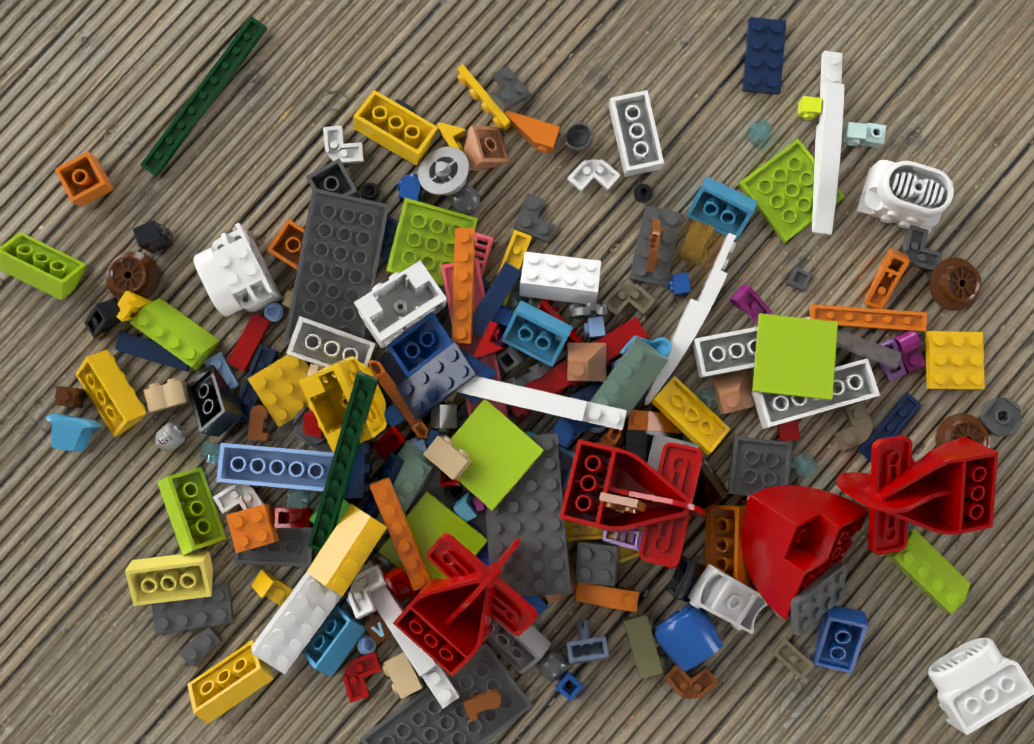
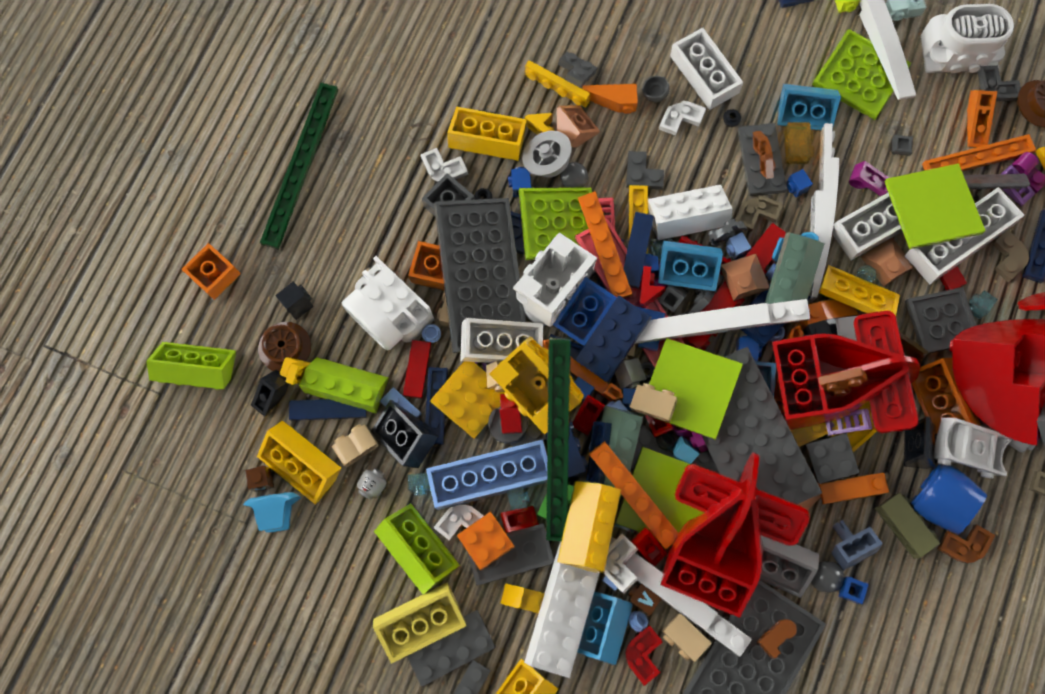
camera: 20 degrees left, 10 degrees down
(258, 424) = (452, 438): dark orange leg -> none
(759, 132) = (812, 34): clear light blue plate -> none

